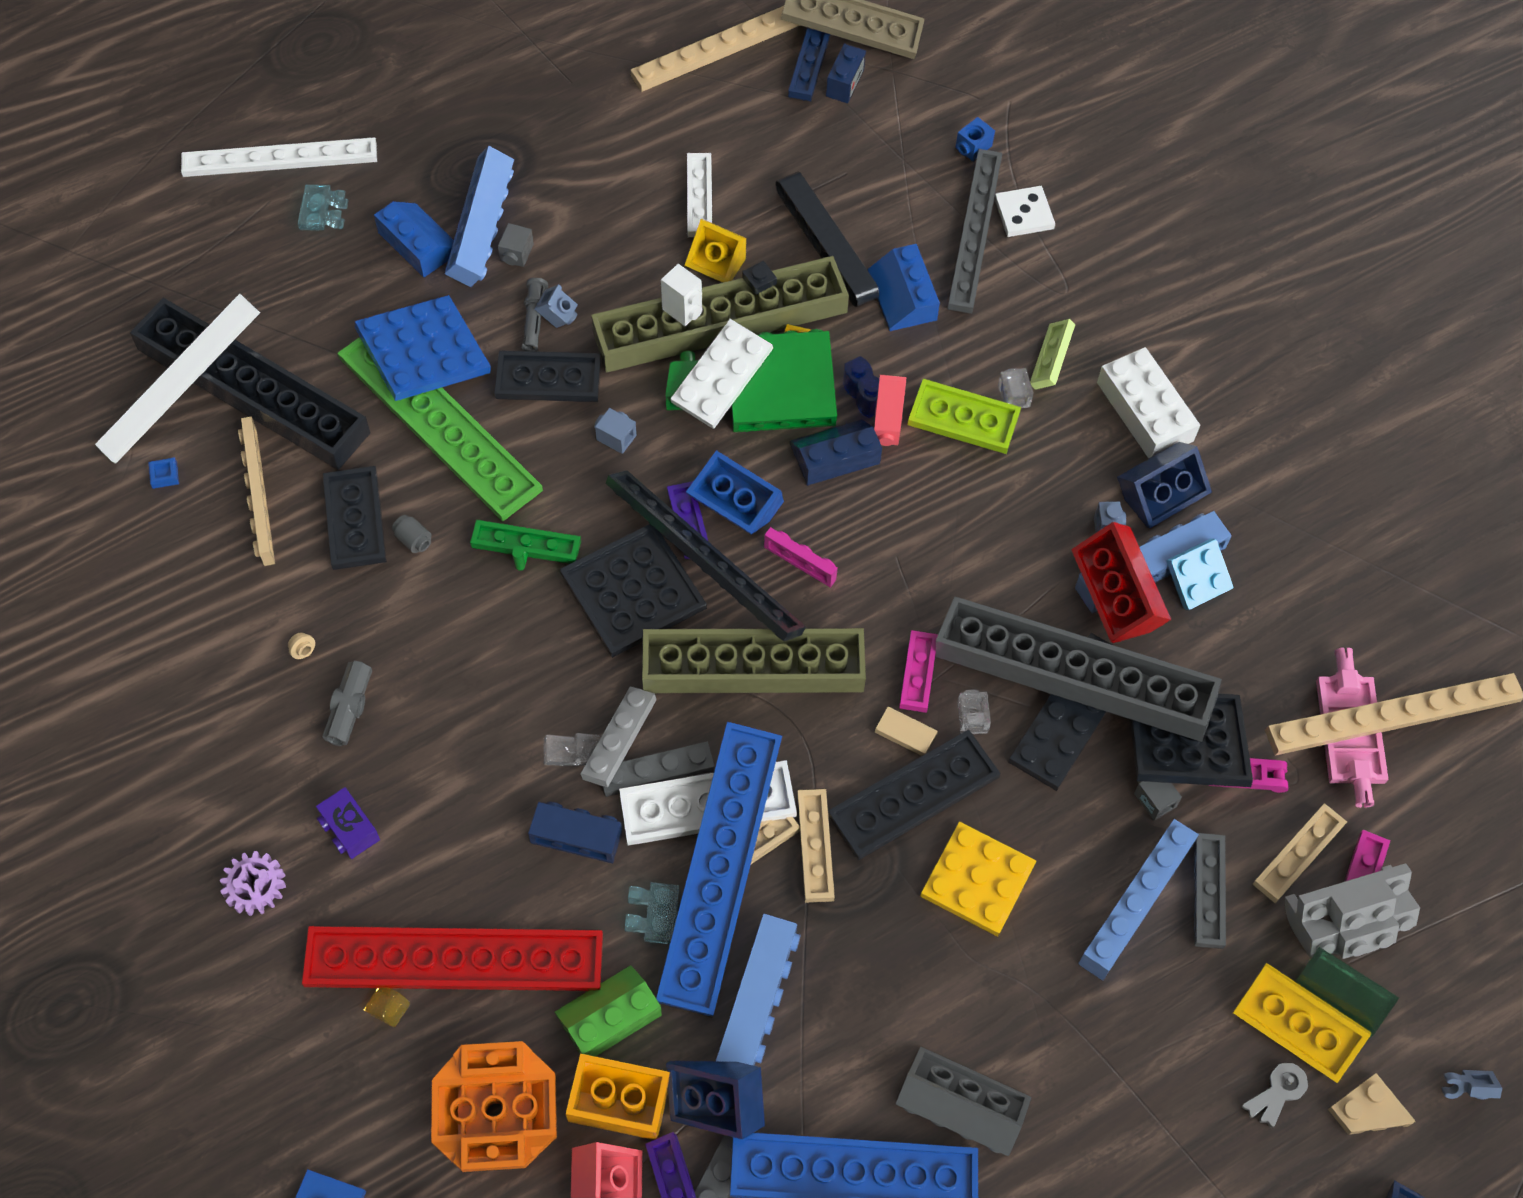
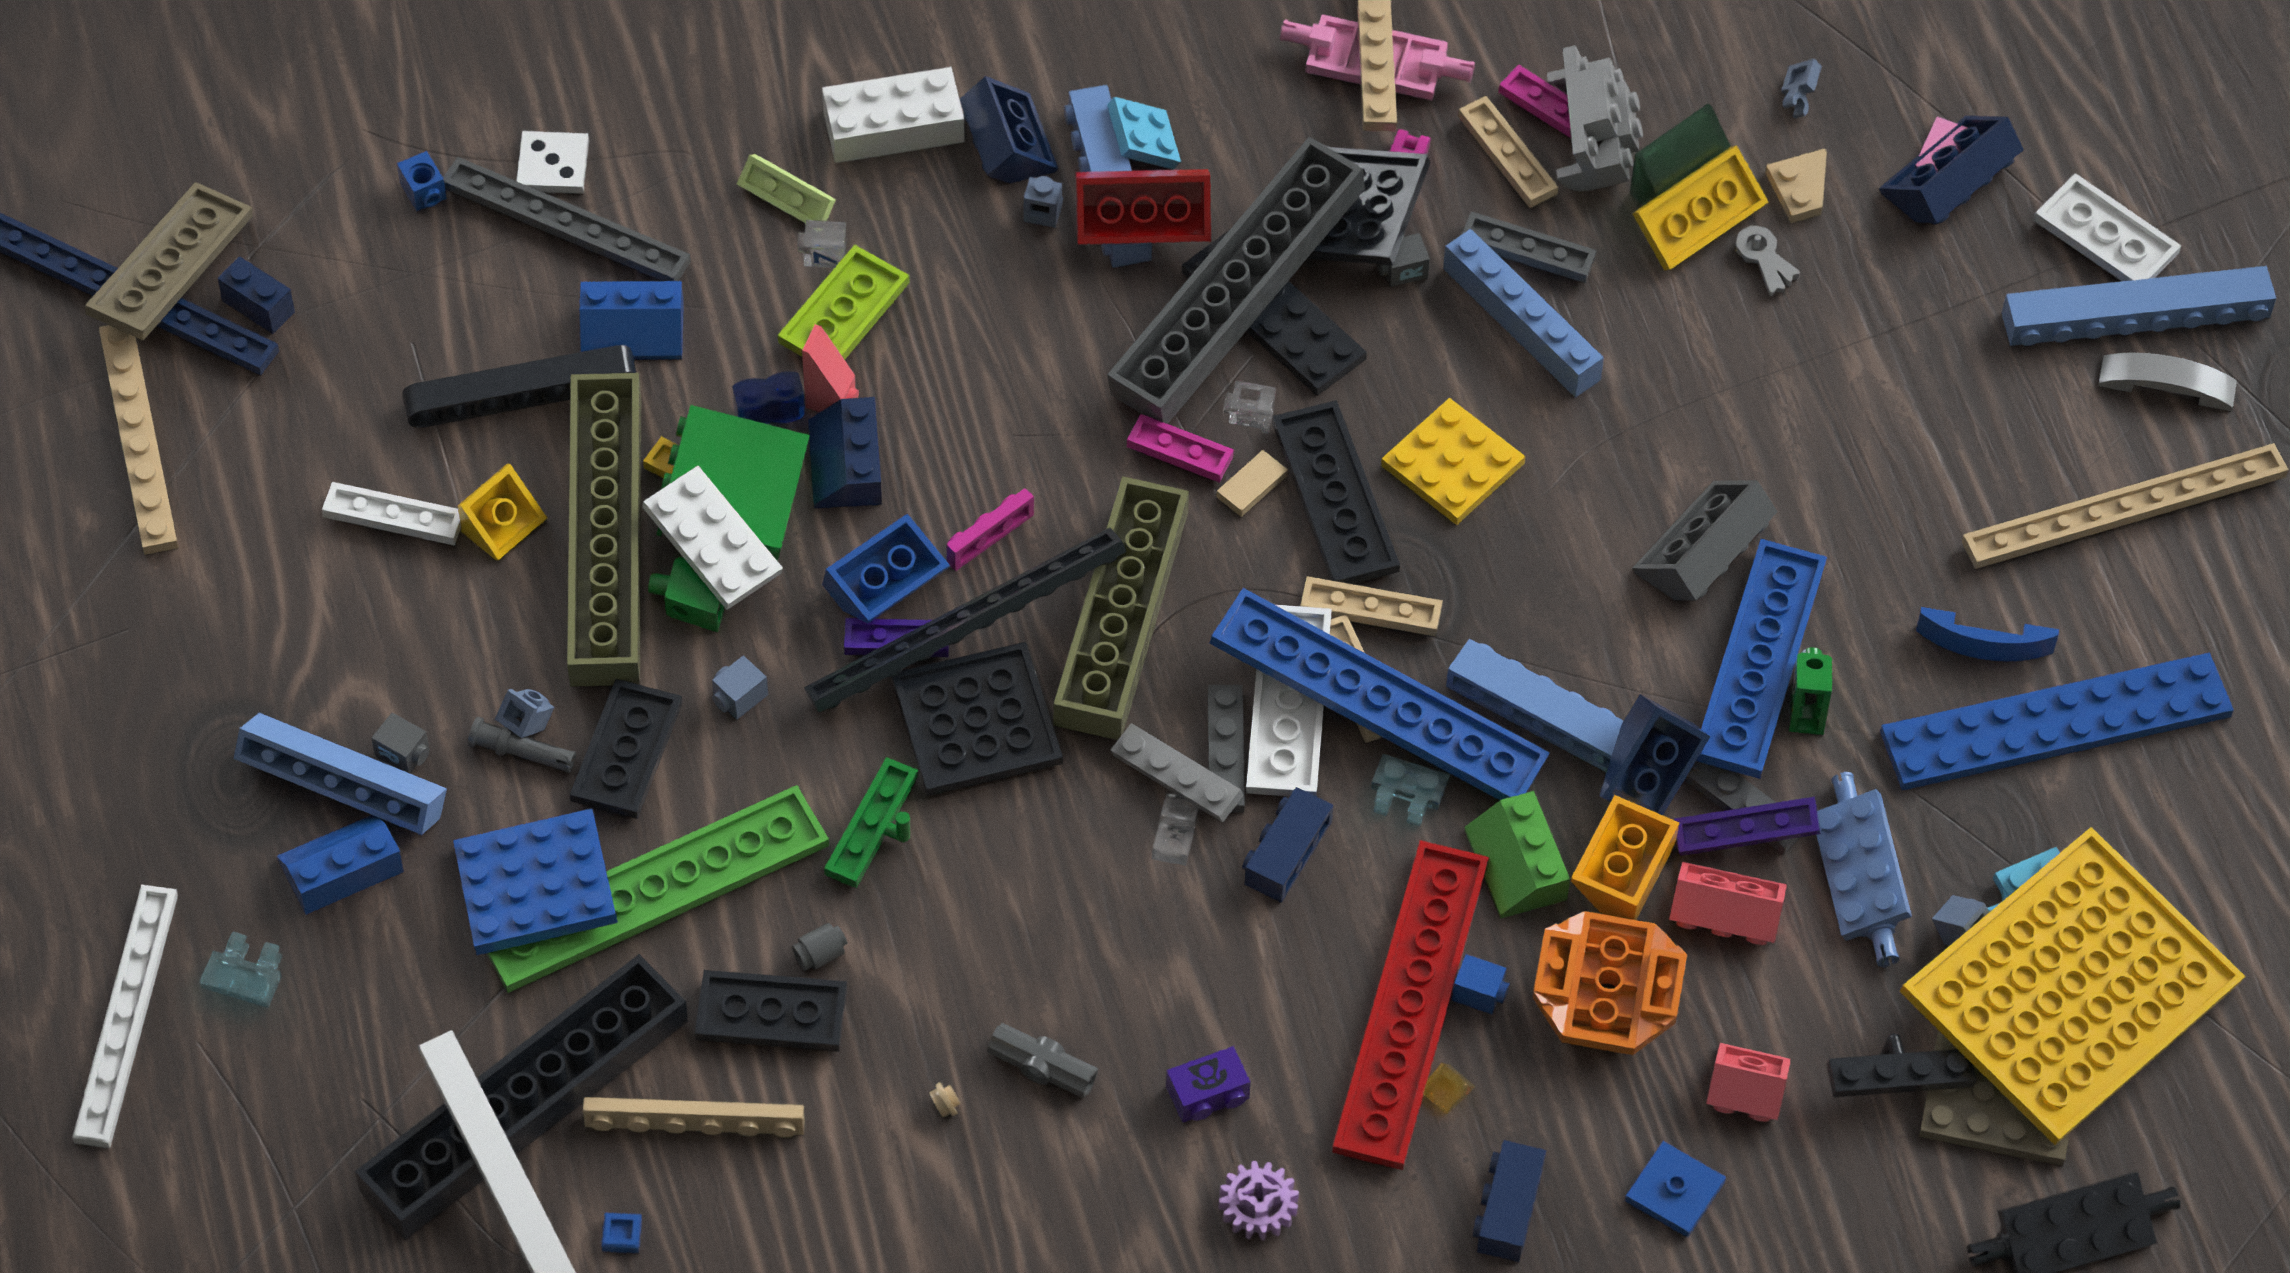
camera: 75 degrees left, 5 degrees down
(284, 1075) = (1509, 1200): none -> dark blue brick
(479, 1008) = (1480, 984): none -> blue brick
(681, 295) = (595, 541): white brick -> none
(759, 277) = (580, 460): black plate -> none

